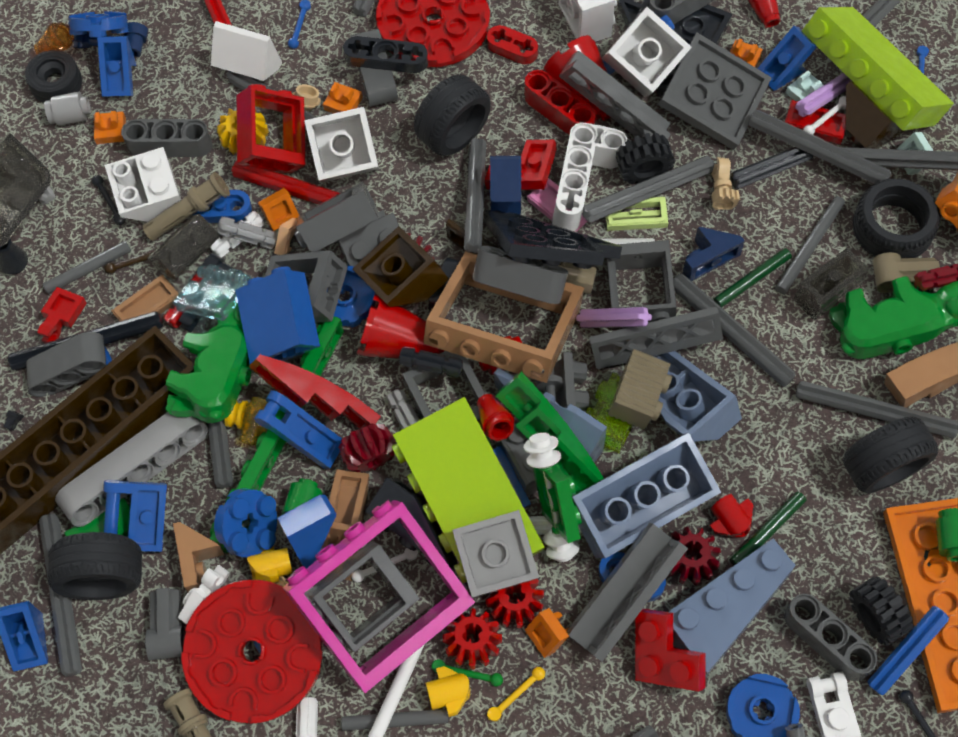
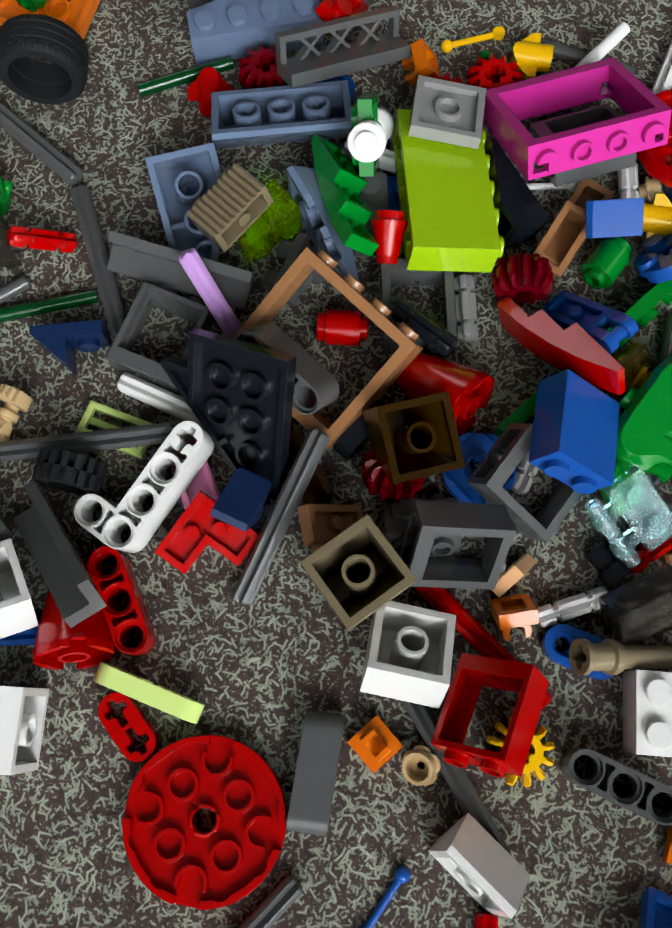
camera: 155 degrees left, 10 degrees up
(247, 232) = (564, 592): light grey axle -> none
(378, 45) = (265, 757): black beam -> none
(395, 163) = (358, 572): none -> dark tan slope
(436, 207) = (325, 521): none -> medium nougat slope
(452, 114) = (257, 625): black tyre -> none
(491, 64) = (148, 693): none -> yellowish green beam
(784, 314) = (41, 239): none -> red axle

